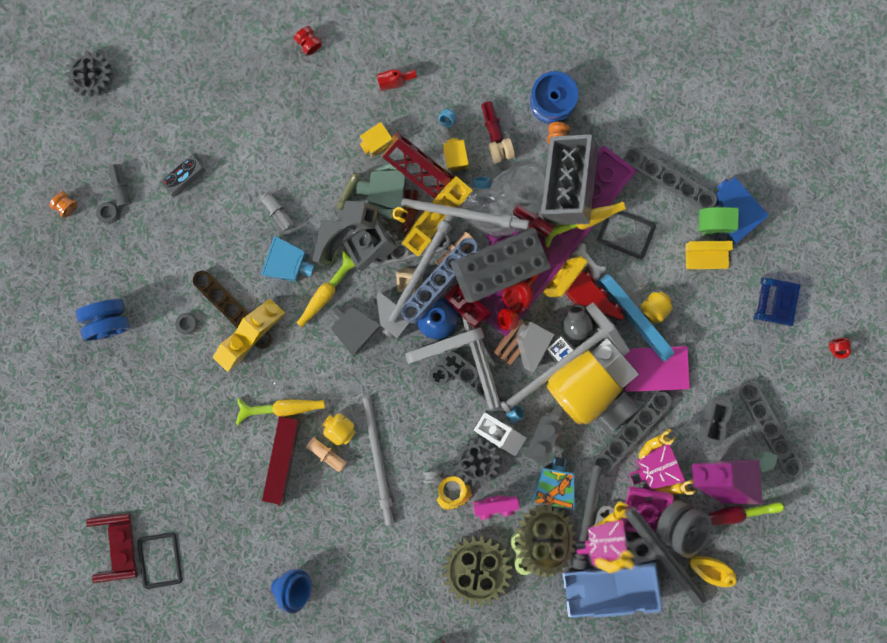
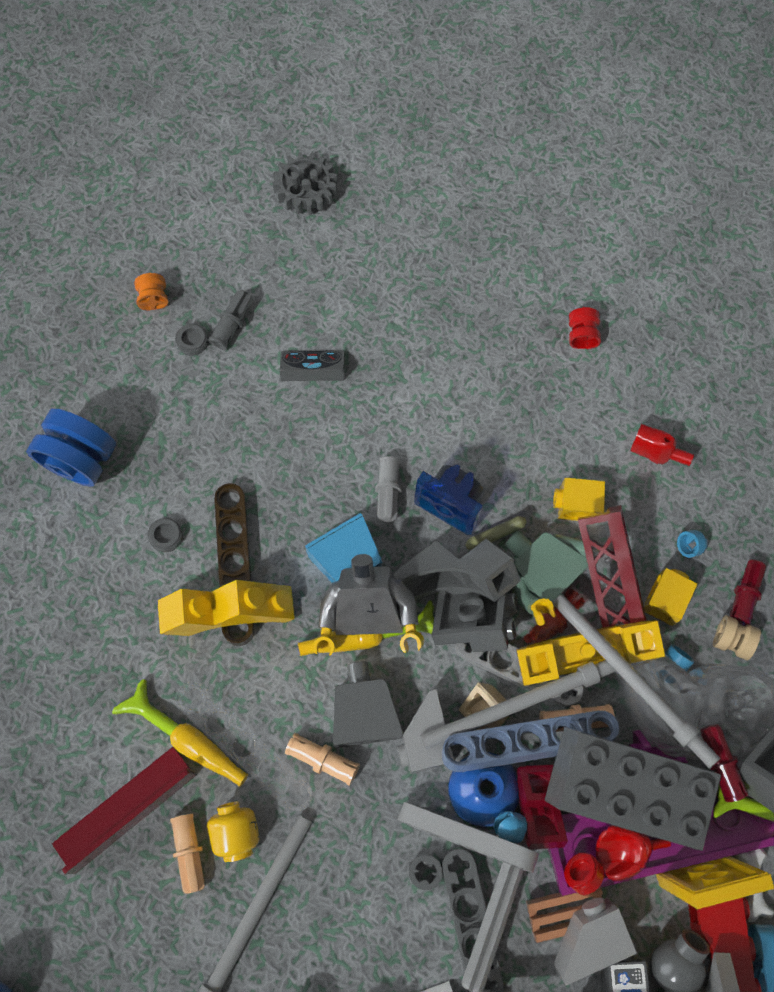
camera: 30 degrees right, 15 degrees down
(311, 191) = (451, 497): none -> clear blue piece
(314, 277) = (367, 603): none -> flat silver torso
(352, 365) = (322, 759): none -> light nougat pin
(460, 325) = (510, 826): none -> dark azure hinge

